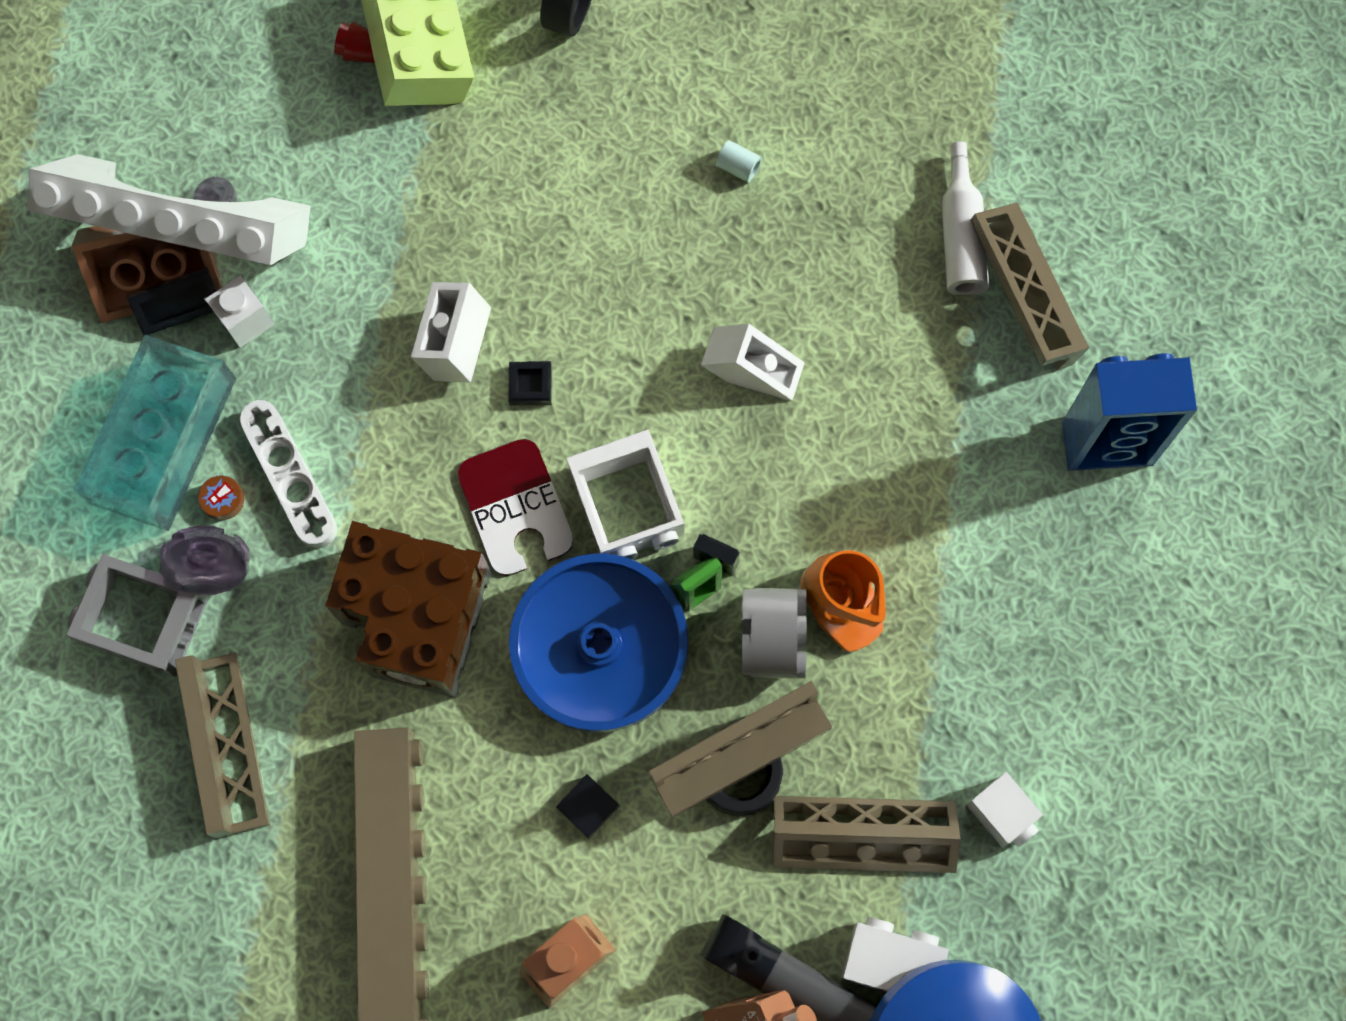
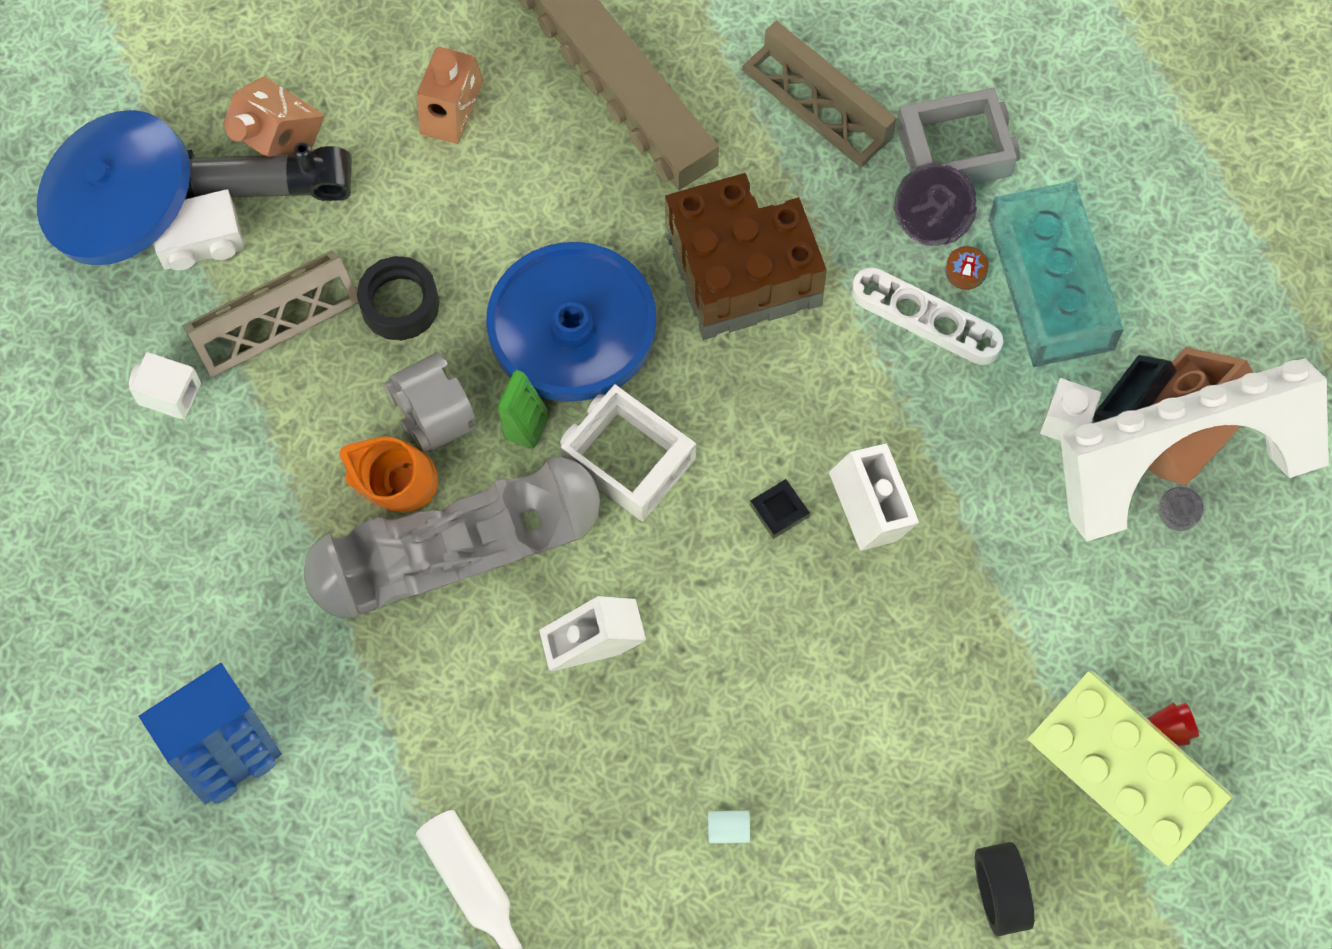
camera: 145 degrees right, 5 degrees down
(511, 494) = (729, 408): piece -> none
(588, 806) = (505, 212): black tile -> none
(710, 548) = (520, 450): black tile -> none
(740, 750) = (402, 297): dark tan fence -> none
(838, 511) = (436, 548): none -> light grey piece
(1030, 285) = (372, 861): dark tan fence -> none

